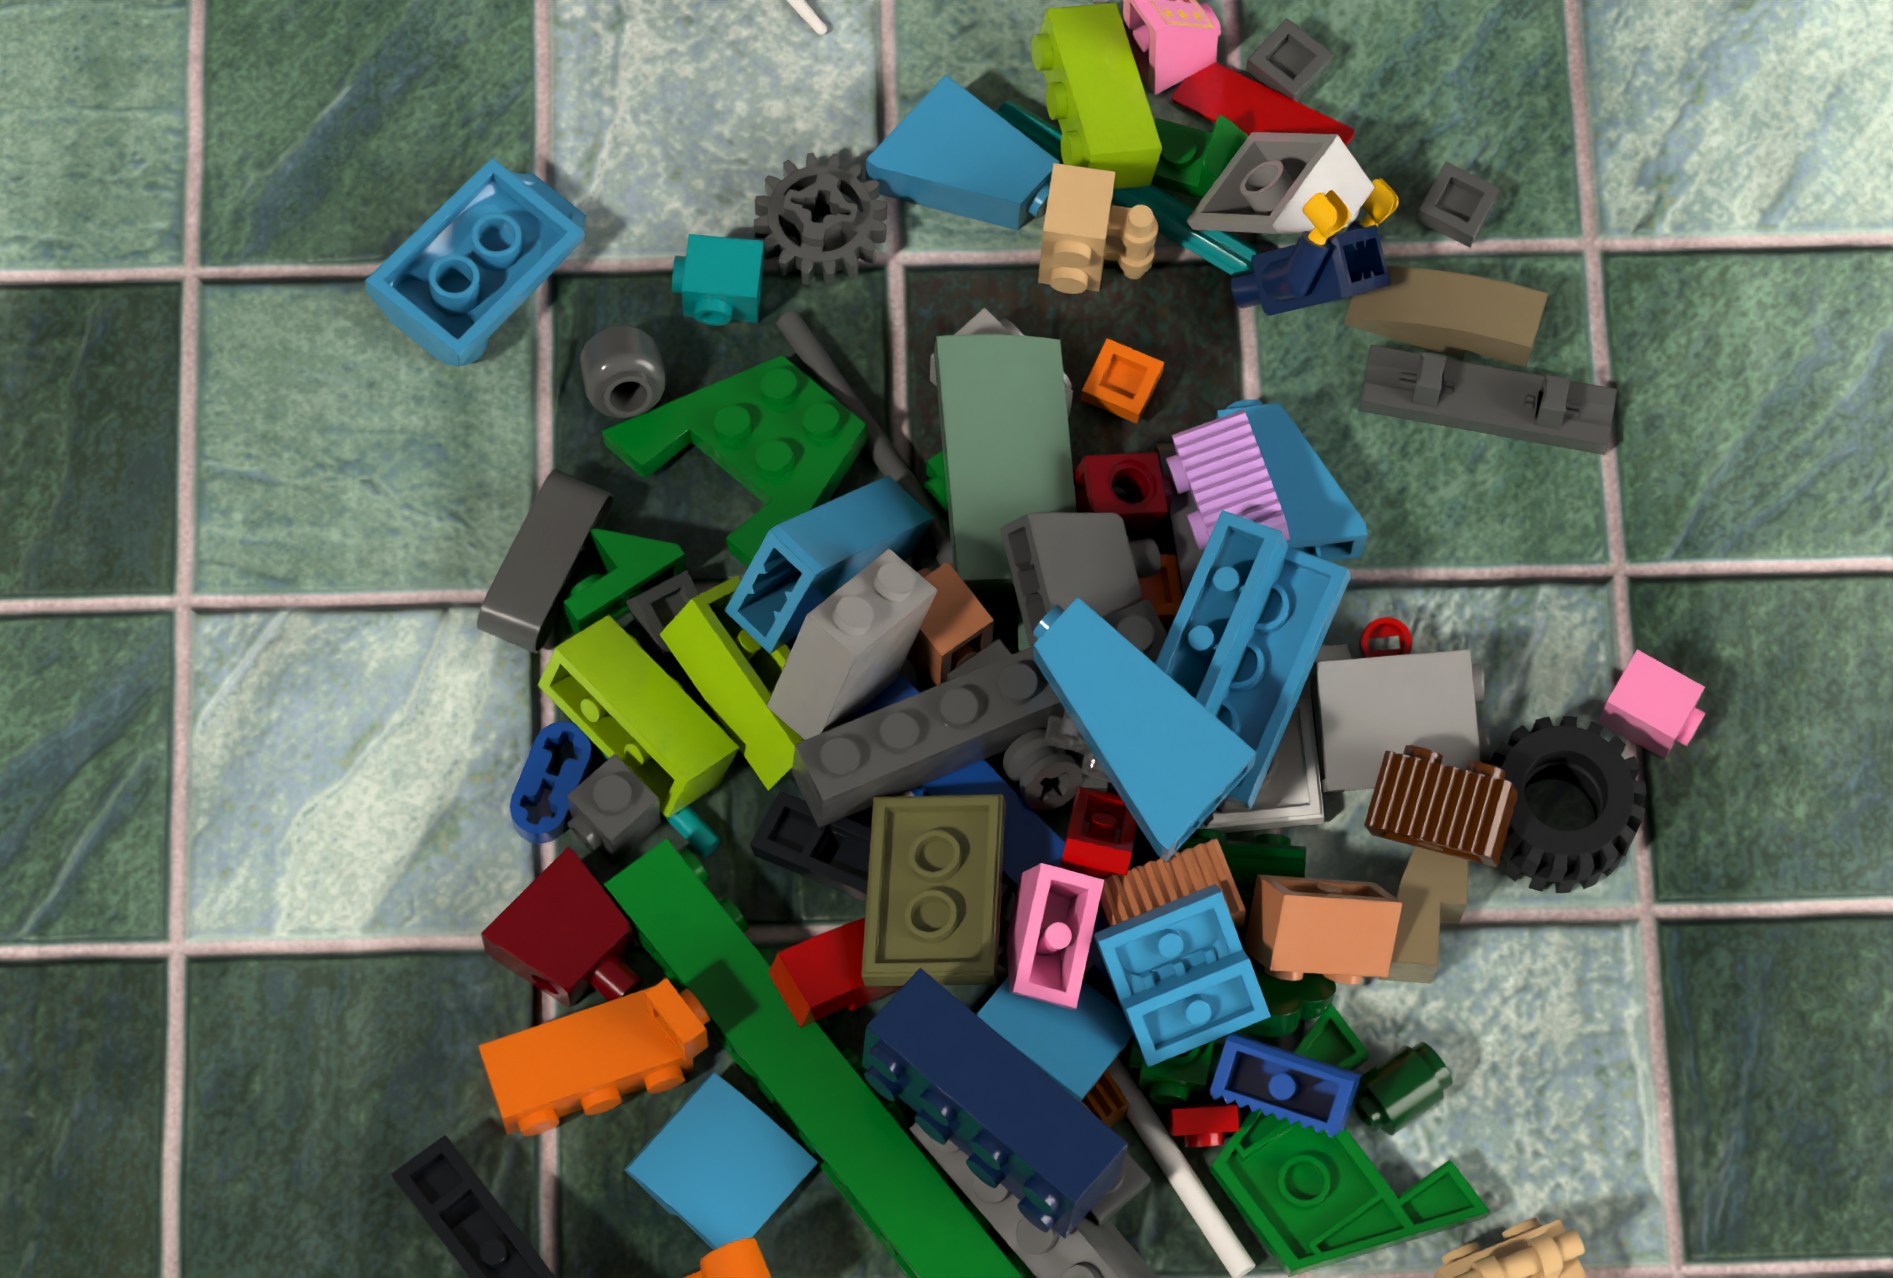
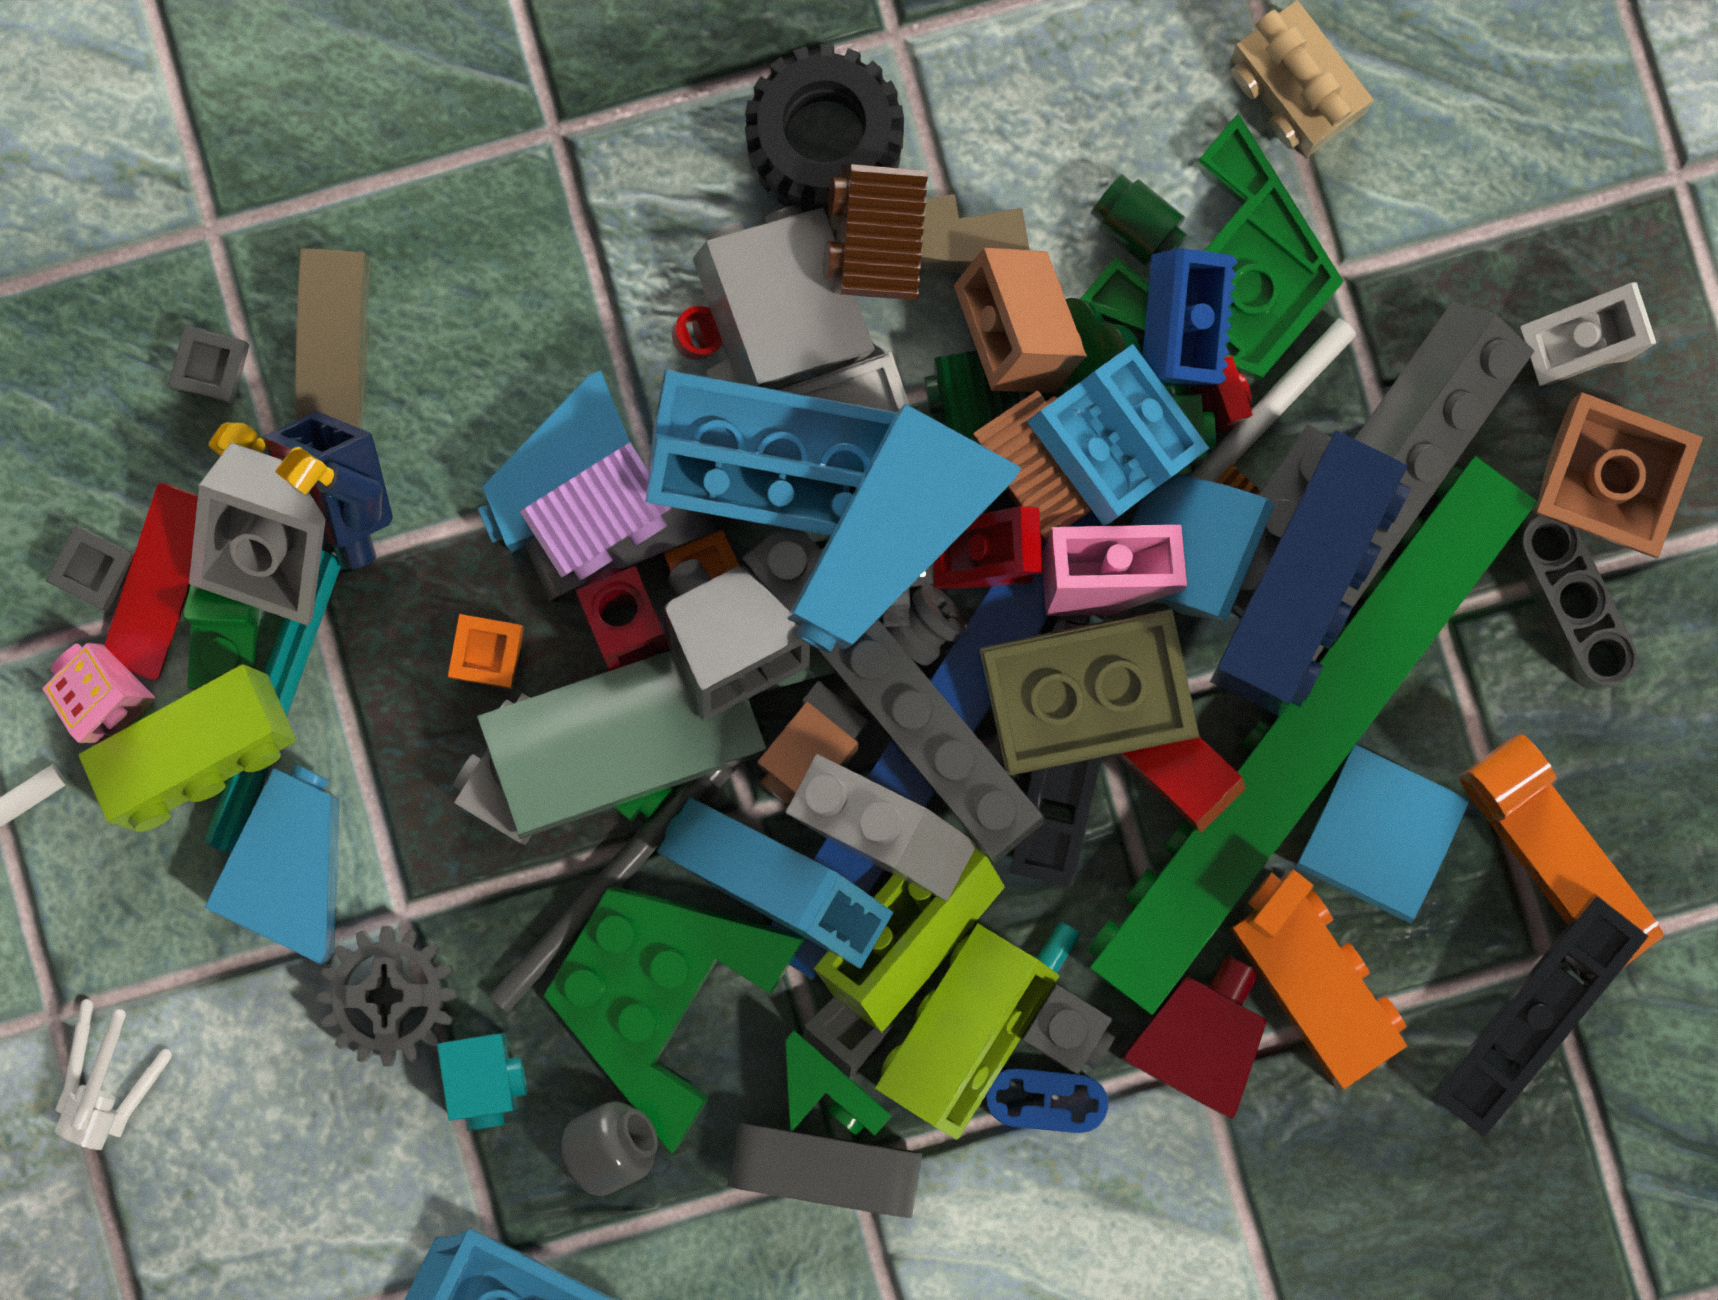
camera: 100 degrees left, 15 degrees up
(1086, 229) = (344, 726): tan brick -> none
(1488, 399) = (410, 293): dark grey hinge -> none
(1653, 706) = (696, 65): bright pink brick -> none

